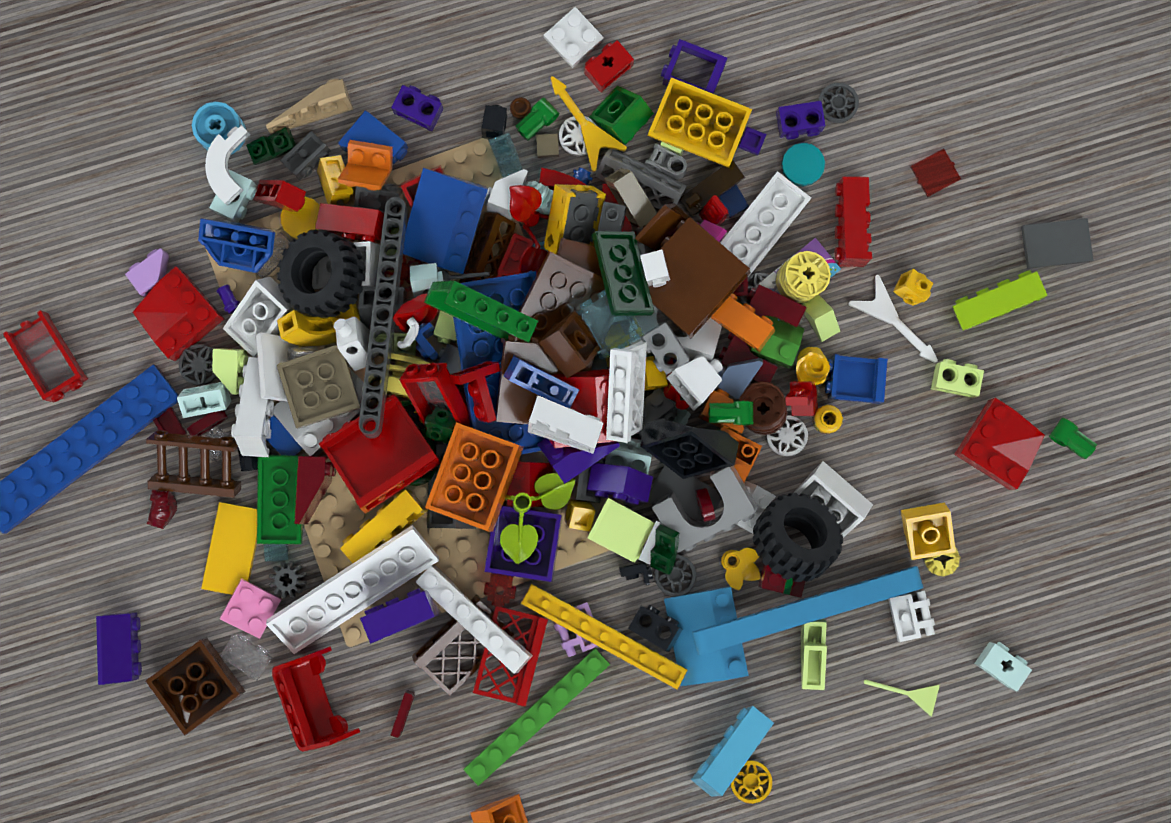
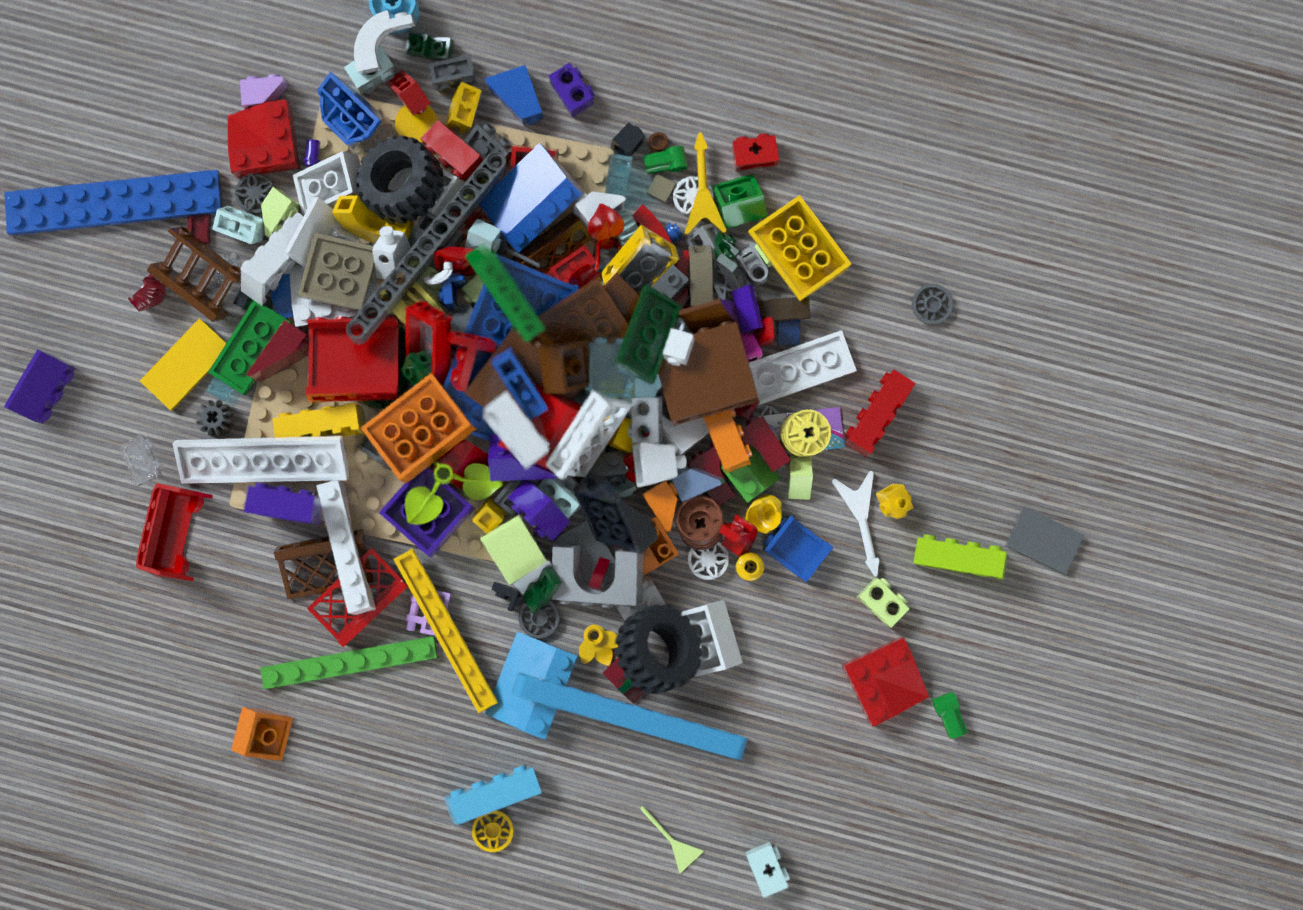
camera: 35 degrees right, 0 degrees up
(46, 358) = (132, 110): door -> none
(195, 686) = (83, 458): reddish brown slope -> none
(207, 423) = (230, 246): dark red beam -> none
(250, 608) = (169, 422): bright pink plate -> none
(320, 104) = (491, 36): tan wedge -> none
(367, 165) = (496, 113): orange bracket -> none
(402, 714) = (239, 589): dark red tile -> none
(491, 589) = (391, 536): clear red brick -> none
(573, 37) = (741, 110): white plate -> none
(638, 163) = (726, 250): none -> dark green slope
(653, 632) = (489, 653): black brick -> none
(688, 201) = (747, 308): none -> dark purple tile
(697, 51) = (842, 215): dark purple window -> none
(737, 413) = (670, 511): green piece -> none
(752, 141) = (837, 291): dark purple tile -> none
(798, 114) = (891, 292): dark purple brick -> none
(803, 164) = (868, 338): teal tile -> none
(813, 655) = (612, 757): yellowish green slope -> none
(905, 617) = (710, 774): white plate -> none
(928, 531) = (775, 715): yellow slope -> none
(935, 172) = (978, 415): clear red piece -> none
(936, 566) = (771, 735): light yellow gear -> none

